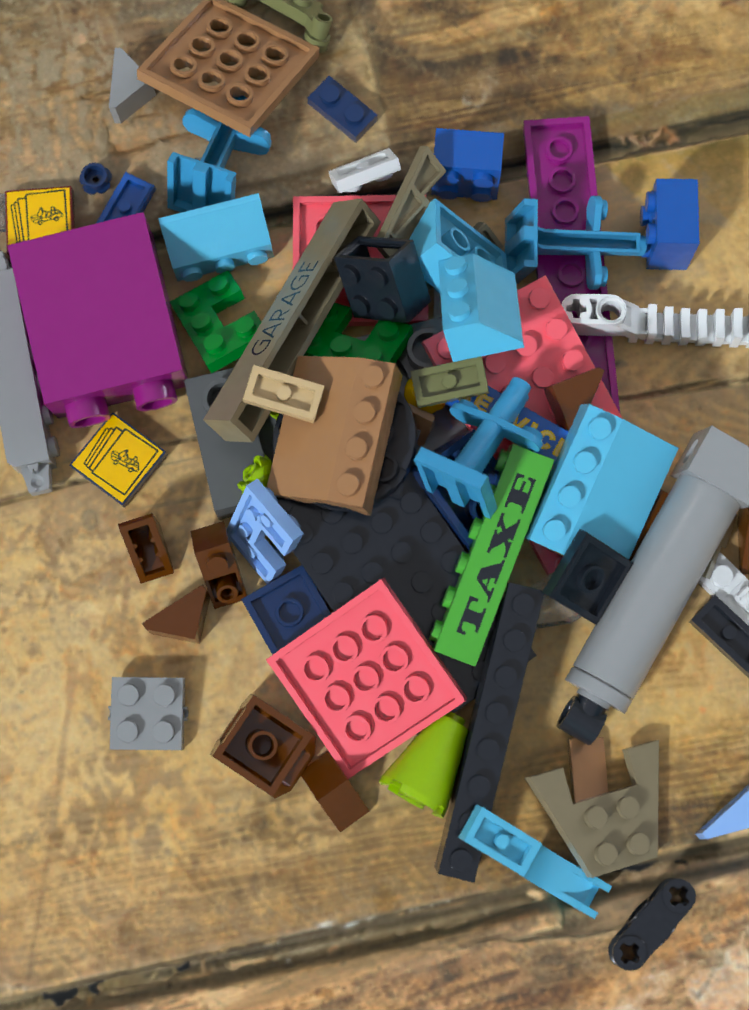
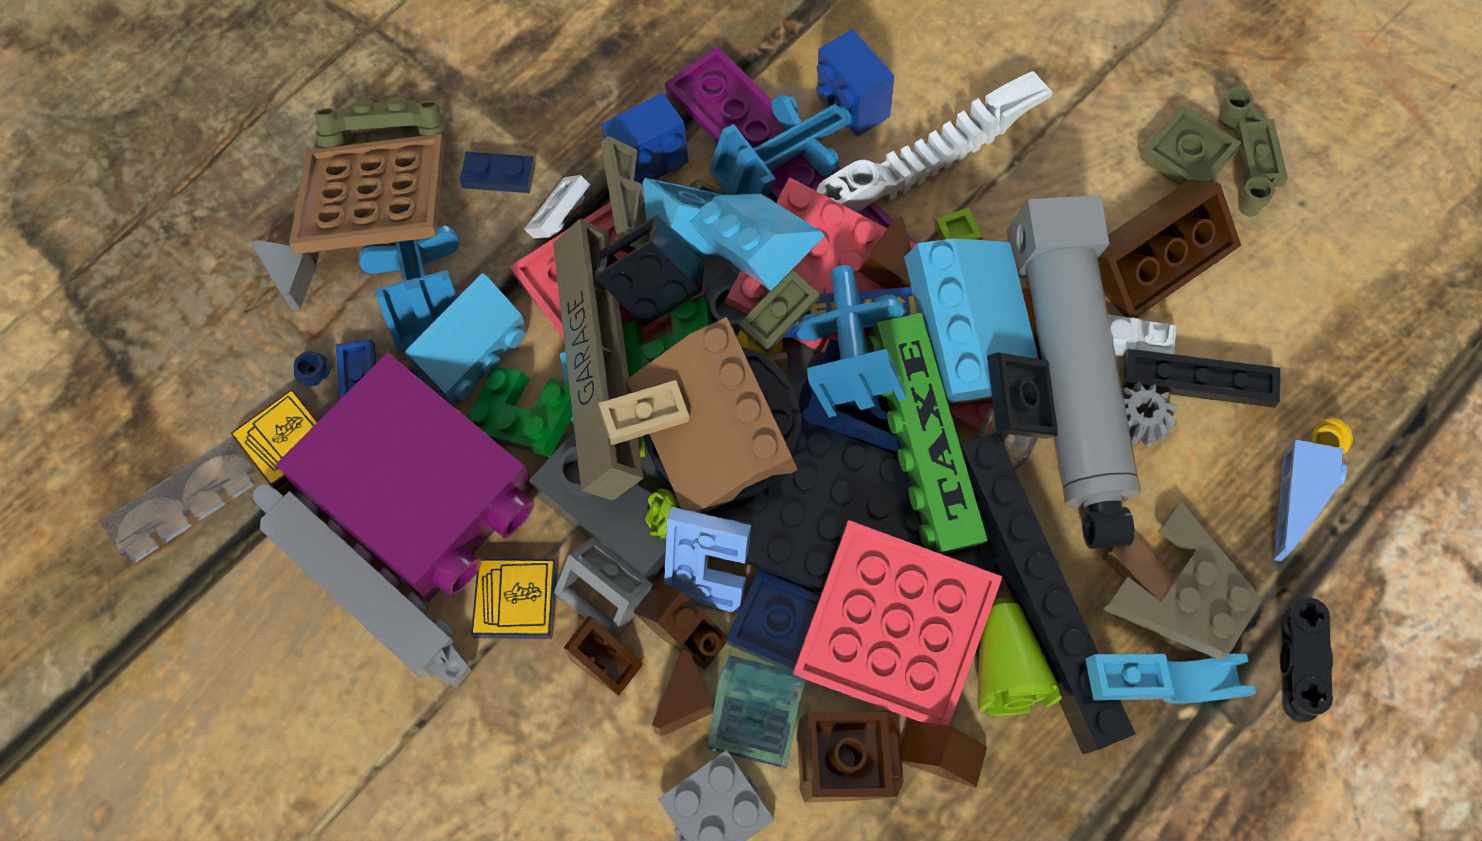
camera: 35 degrees left, 10 degrees down
(189, 493) = (609, 577): none -> light grey tile
(225, 665) = (756, 711): none -> clear light blue slope
(661, 405) = (958, 225): none -> lime plate
(692, 666) = (1152, 405): none -> light grey gear

